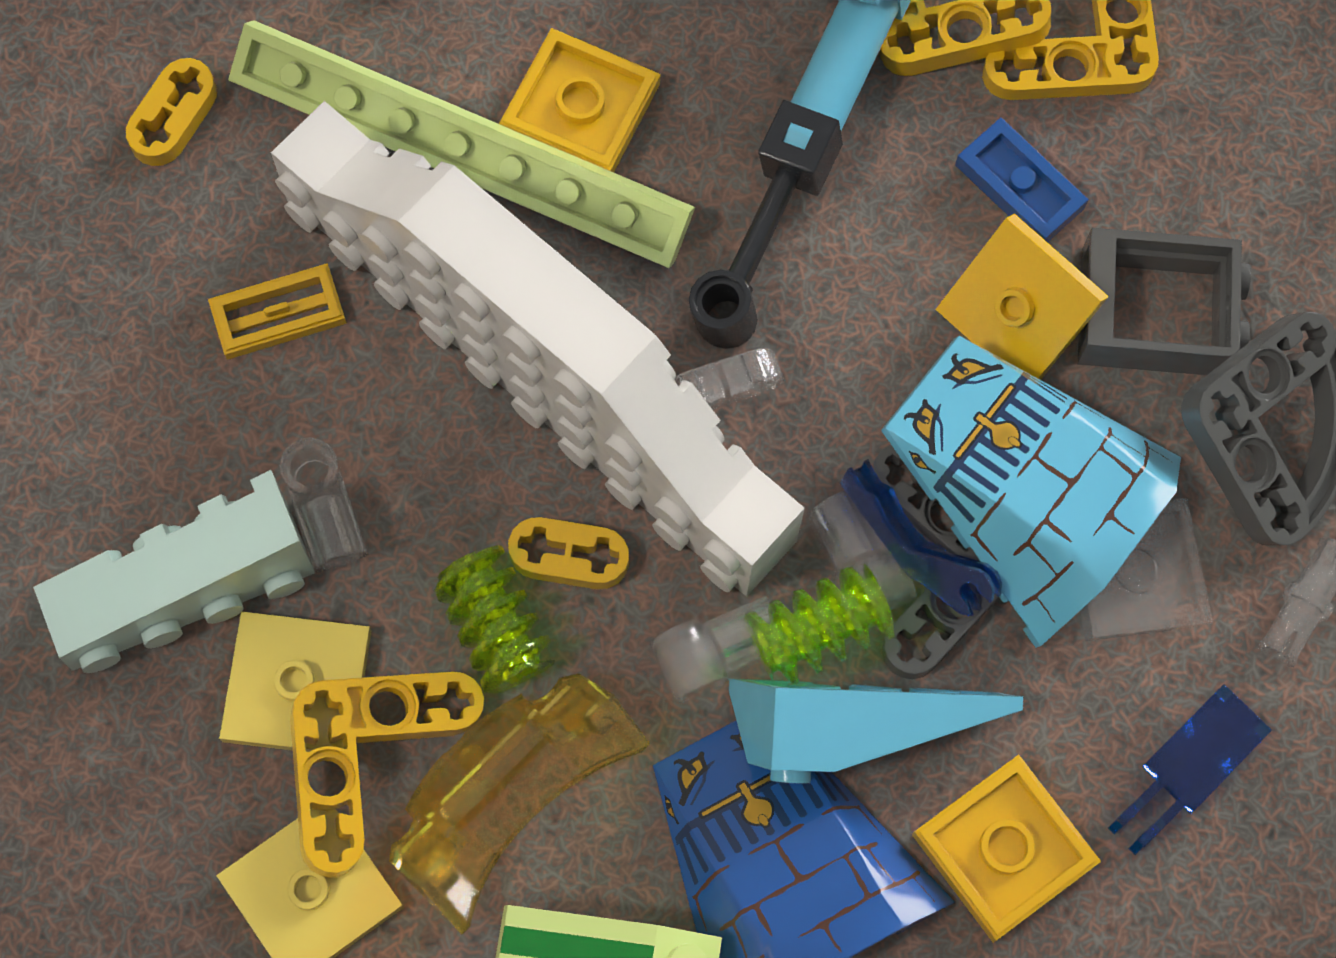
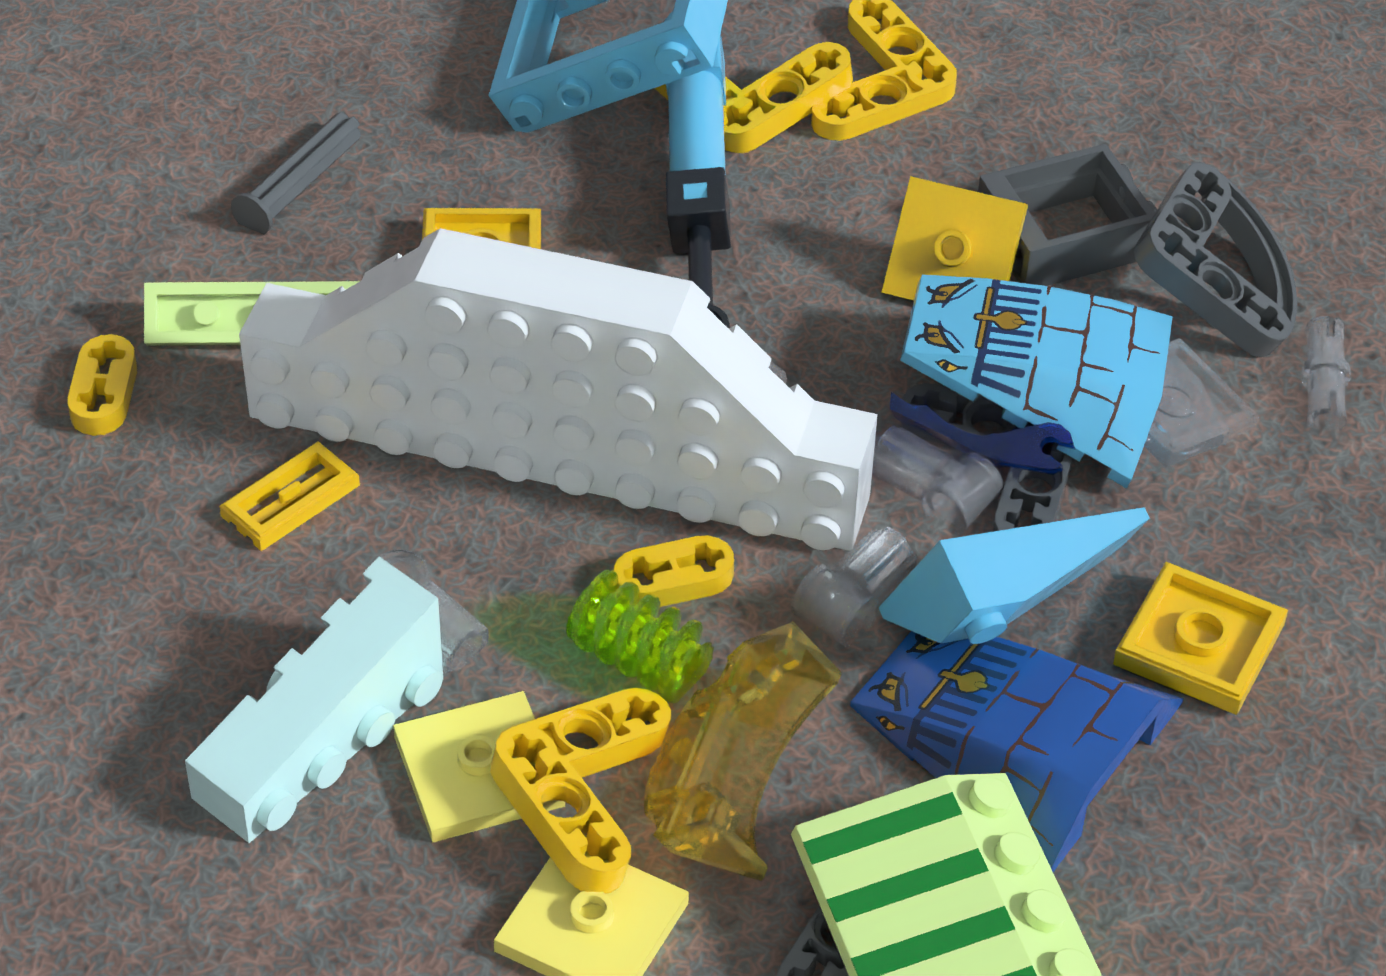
camera: 25 degrees left, 25 degrees down
(820, 623) = (939, 504): clear neon green piece -> none
(1021, 180) = (883, 175): blue plate -> none
(1197, 759) = (1314, 514): clear blue arm -> none

